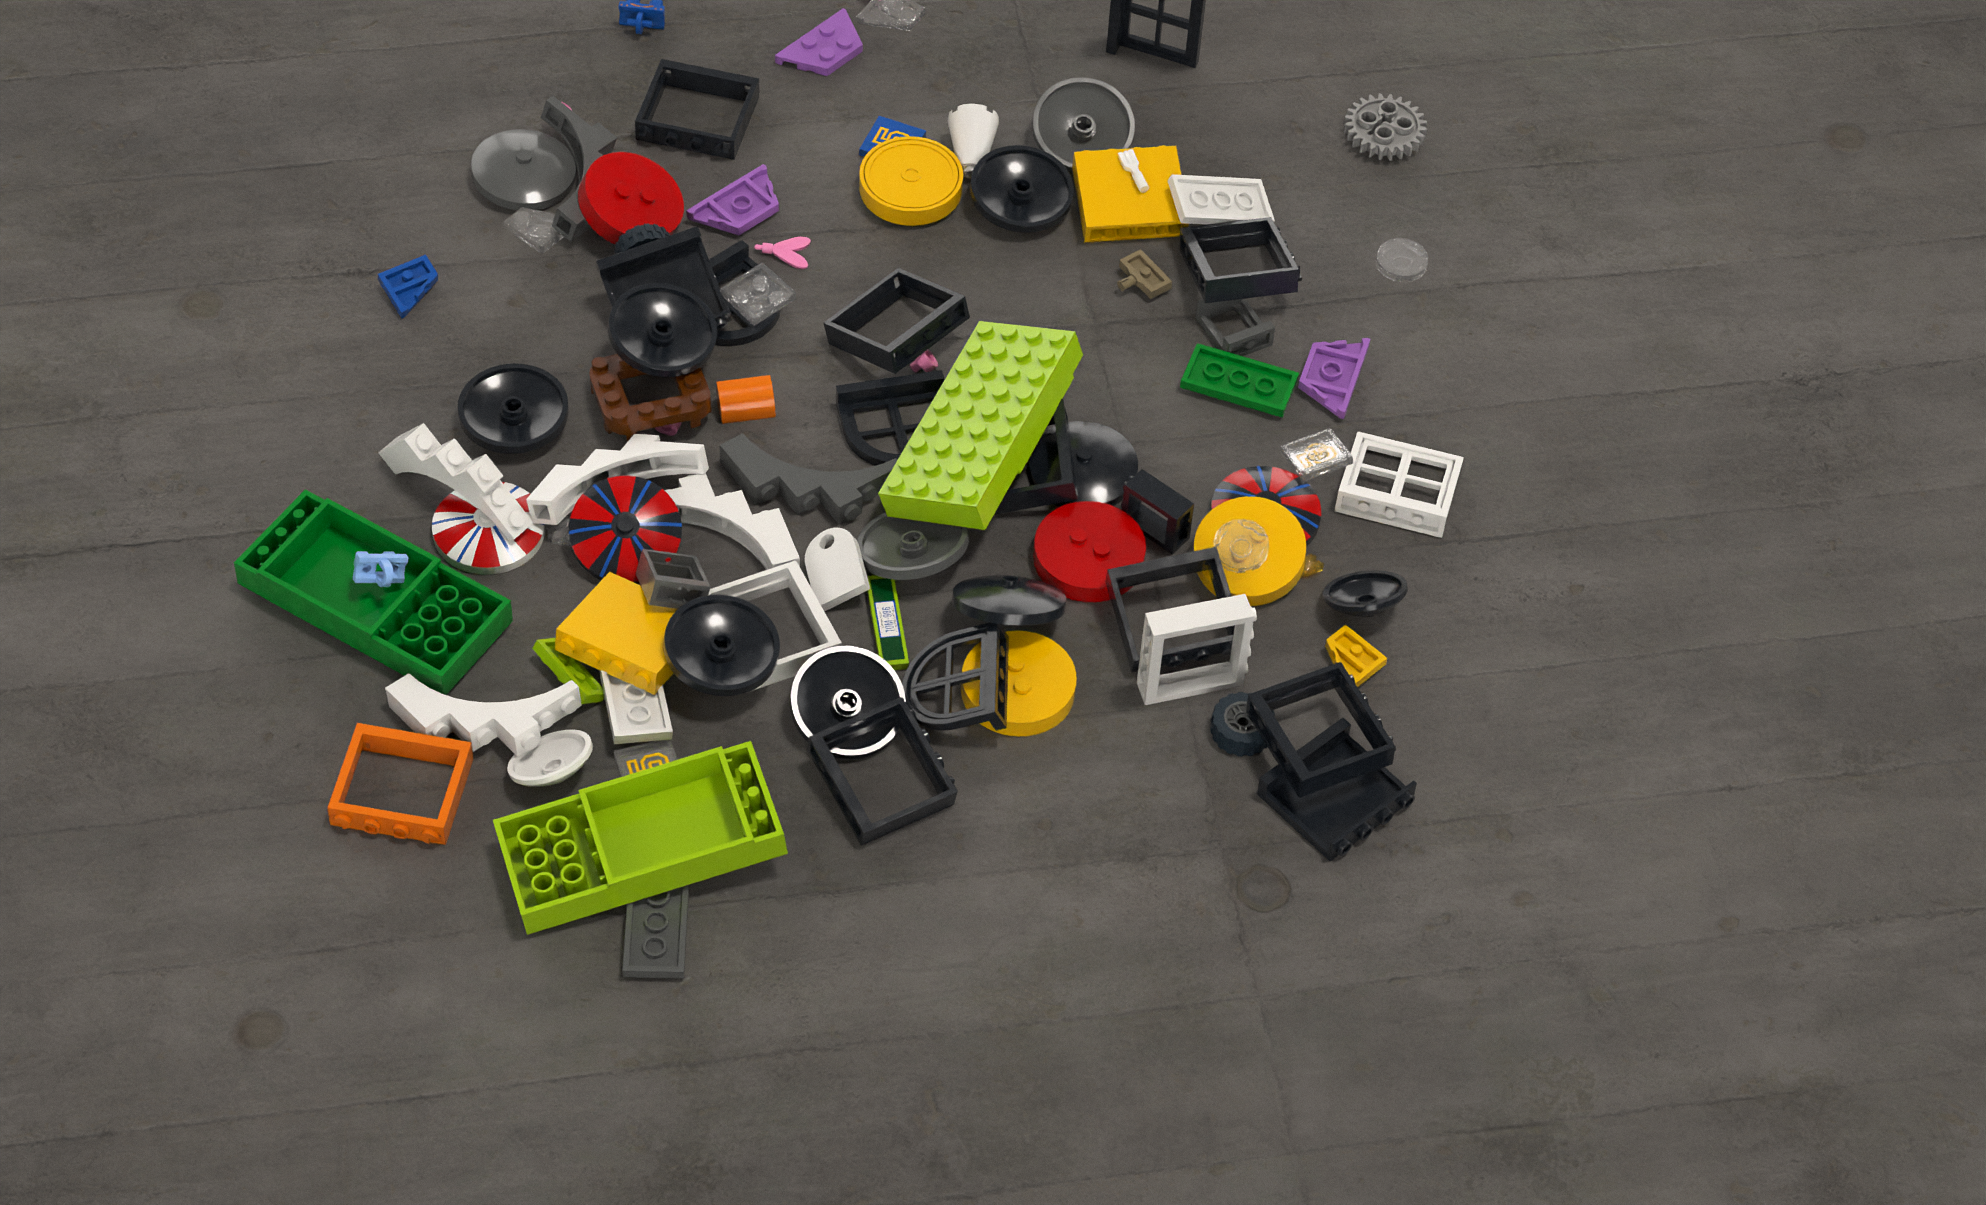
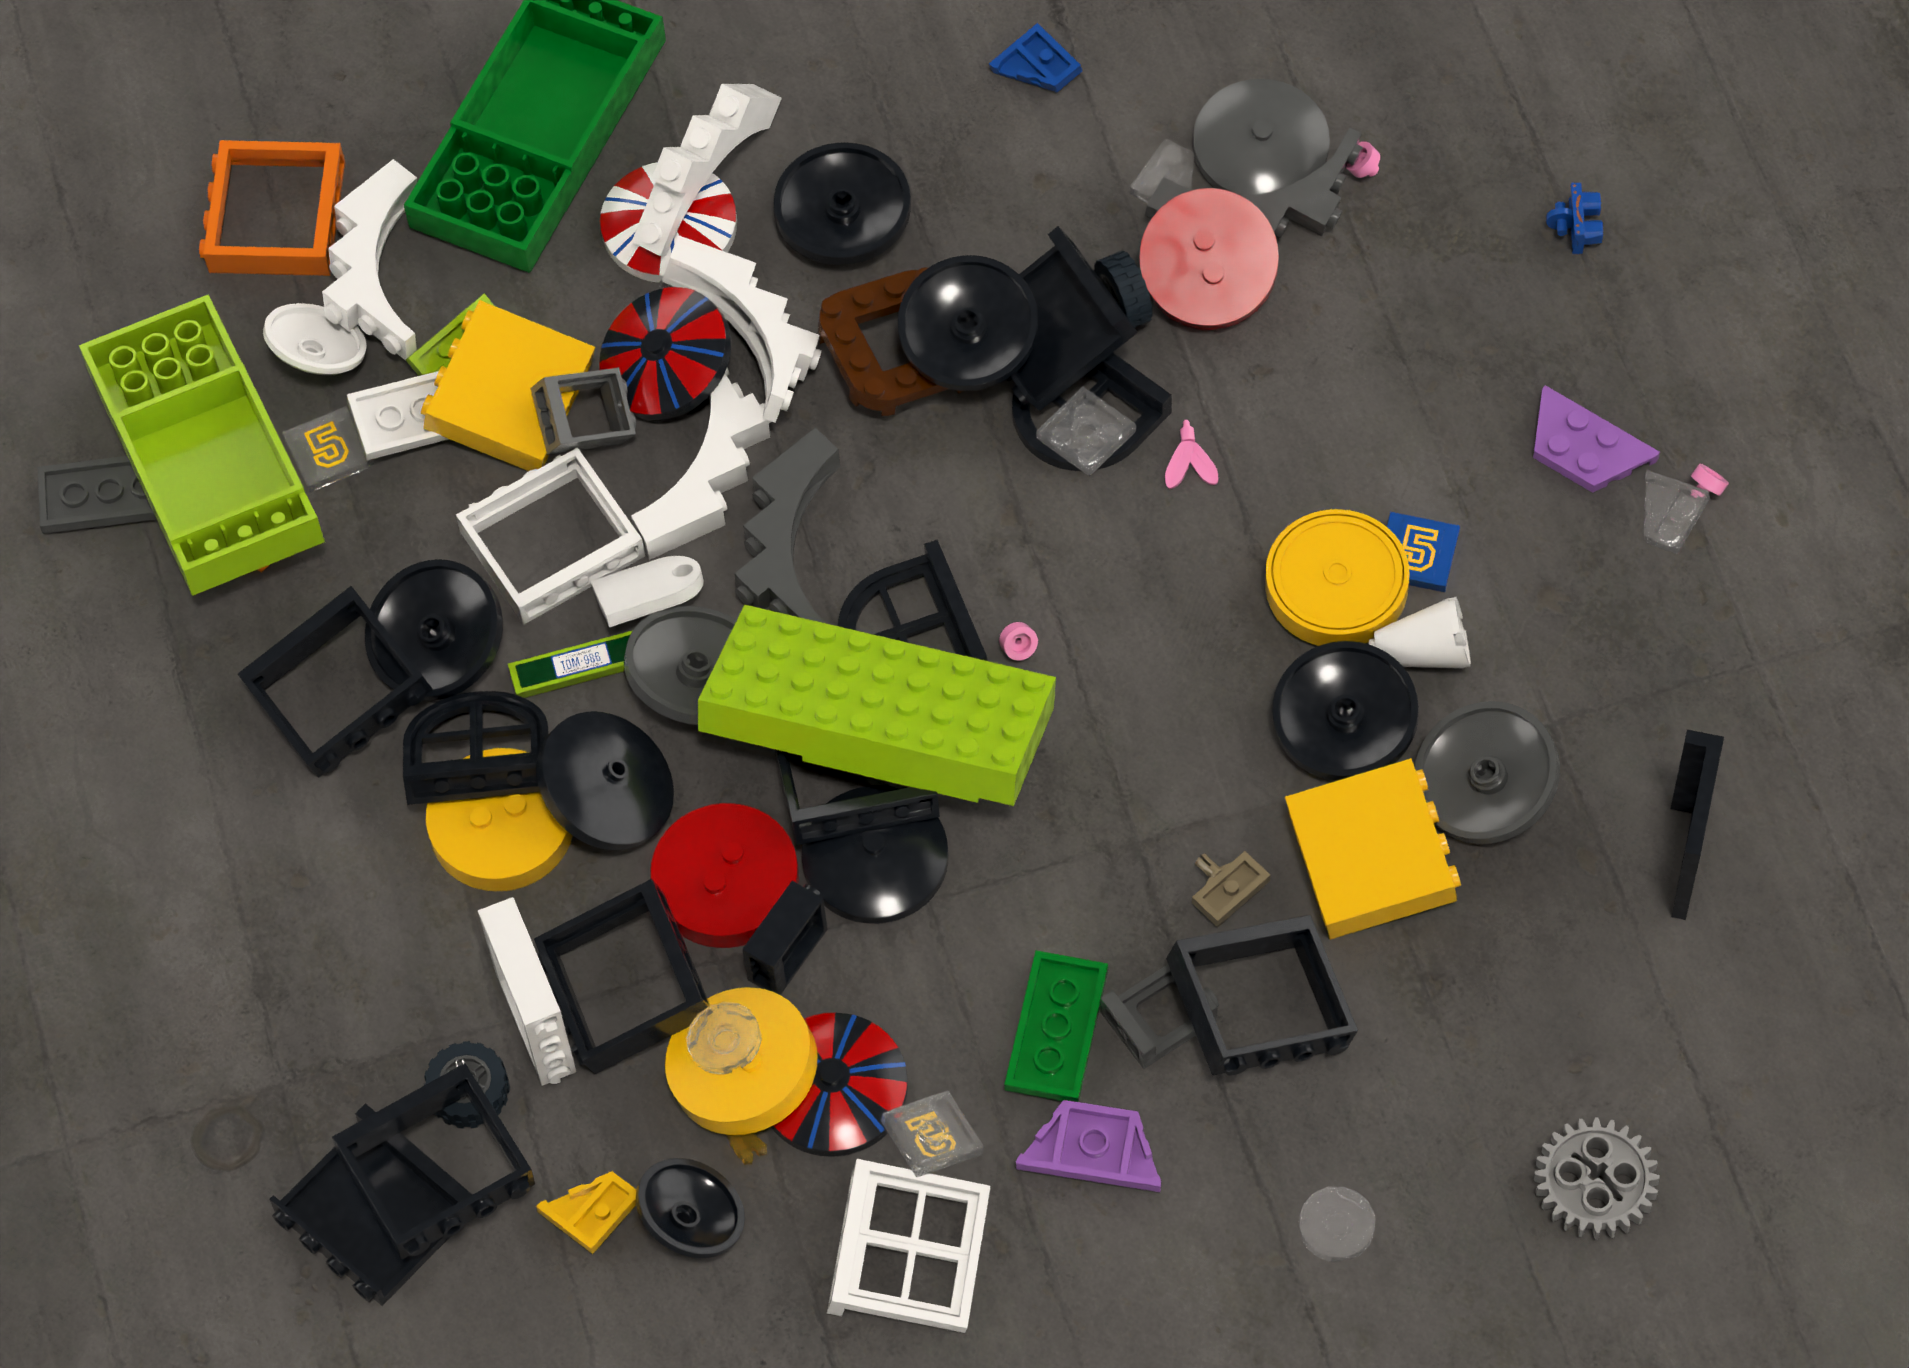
camera: 90 degrees right, 10 degrees up
(391, 564) = (550, 112): light blue hips -> none
(704, 81) = (1423, 259): black window -> none
(721, 645) = (478, 473): black dish -> none
(738, 204) = (1256, 390): medium lavender wing -> none
(745, 399) = (912, 451): orange brick -> none
(949, 313) = (1038, 625): black window -> none
(1130, 163) = (1401, 832): white piece -> none
(1218, 199) = (1372, 961): white plate -> none

